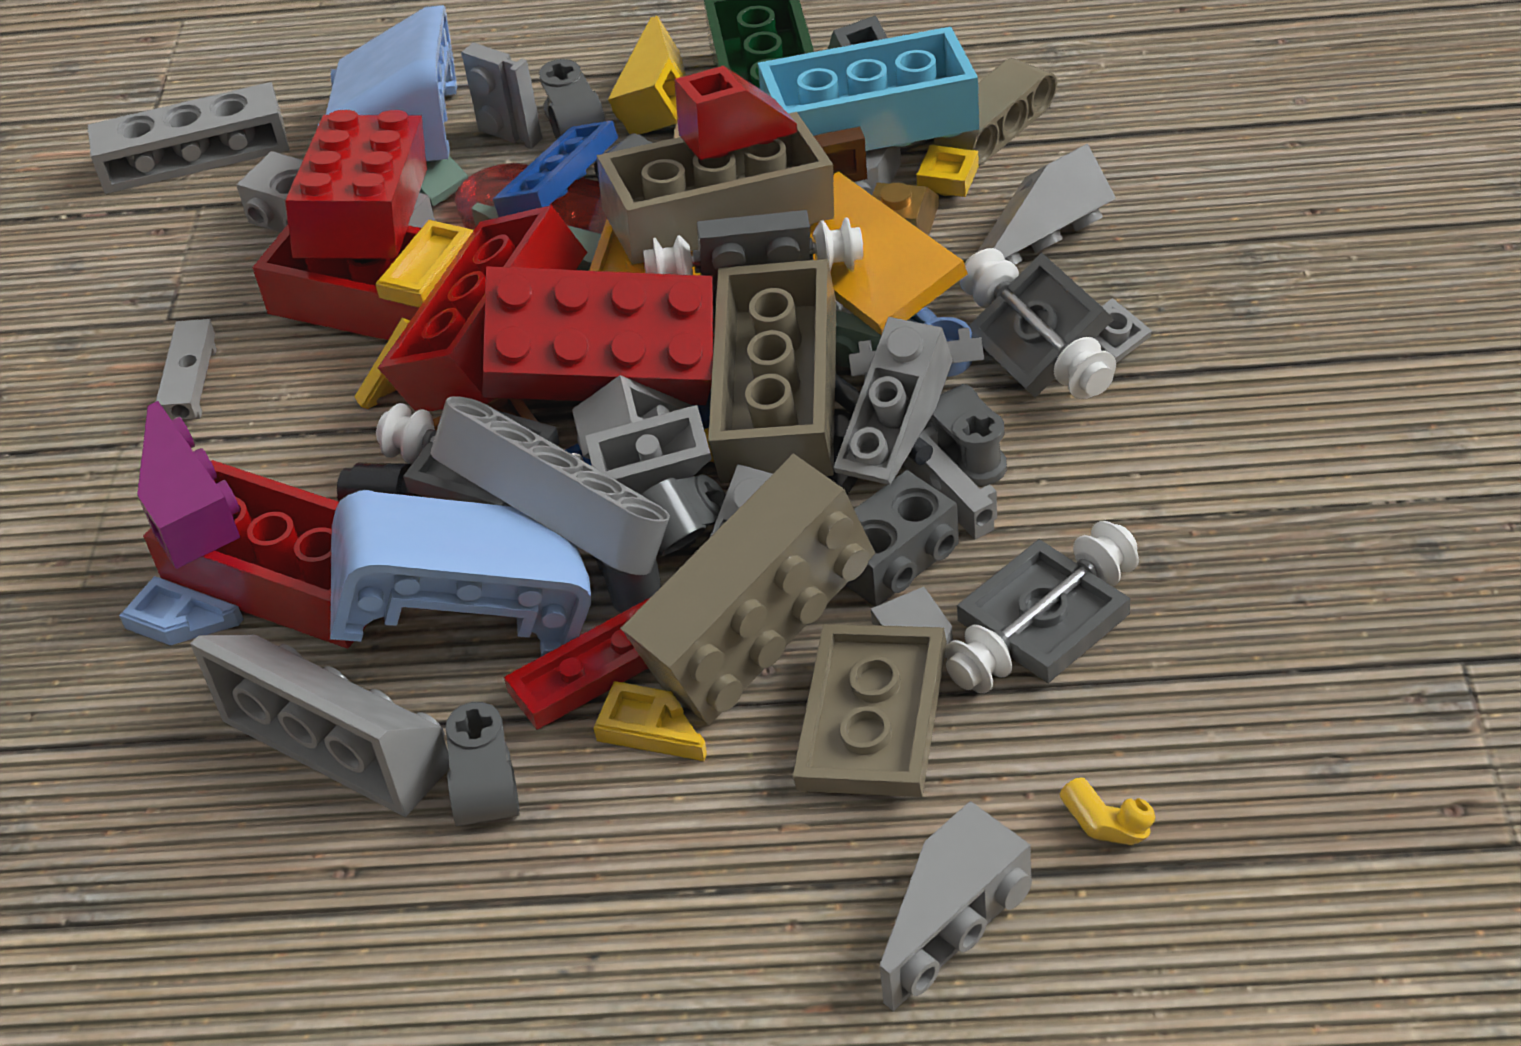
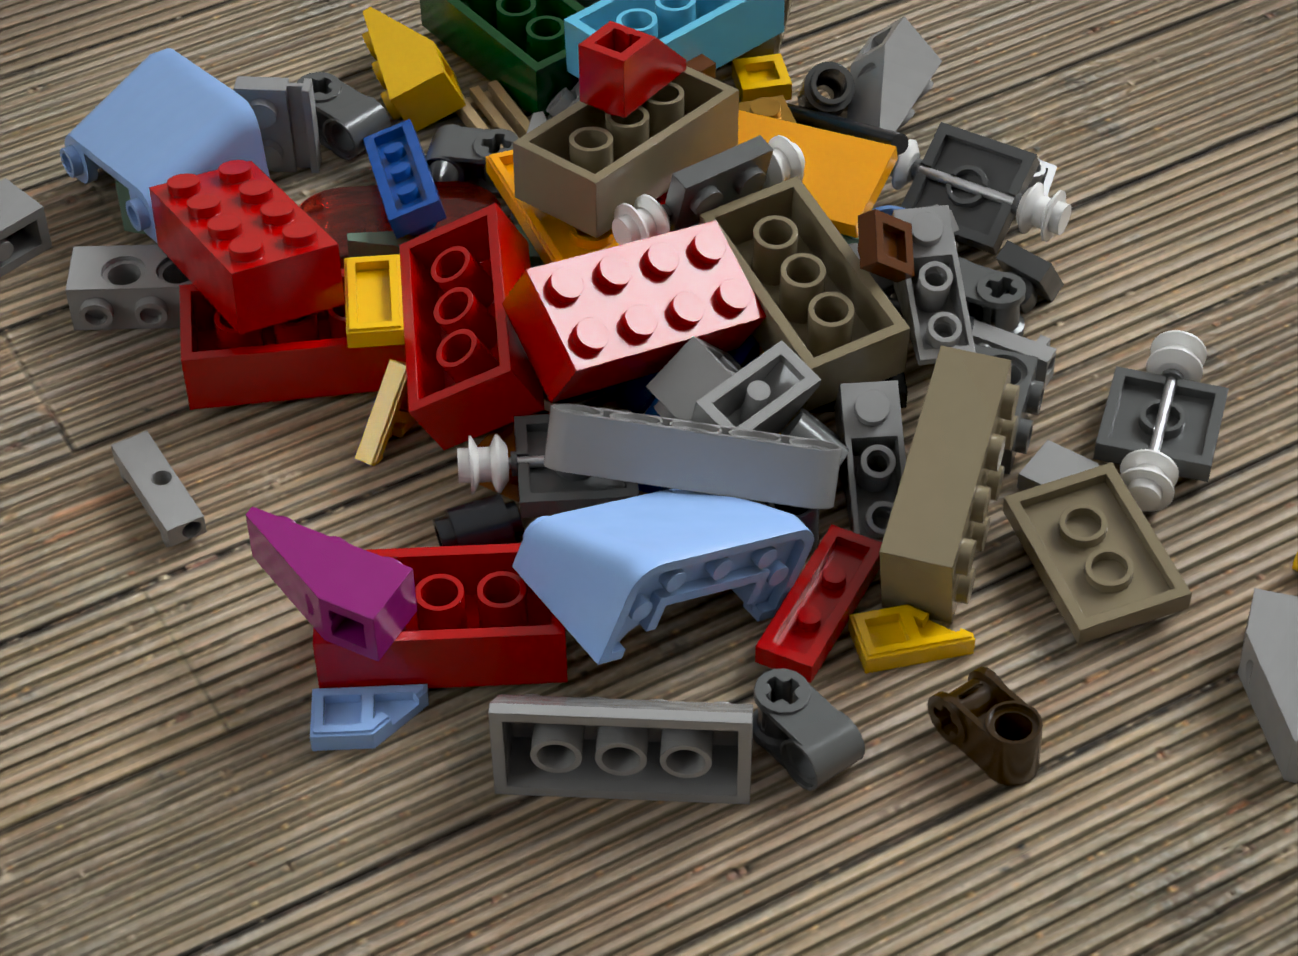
camera: 35 degrees left, 0 degrees up
(643, 836) = (990, 727): none -> dark brown piece
(850, 347) = (885, 246): none -> reddish brown plate
(959, 232) = (848, 127): none -> black bar
(973, 187) = (834, 80): none -> dark grey brick
(1032, 427) = (1036, 272): none -> dark grey tile

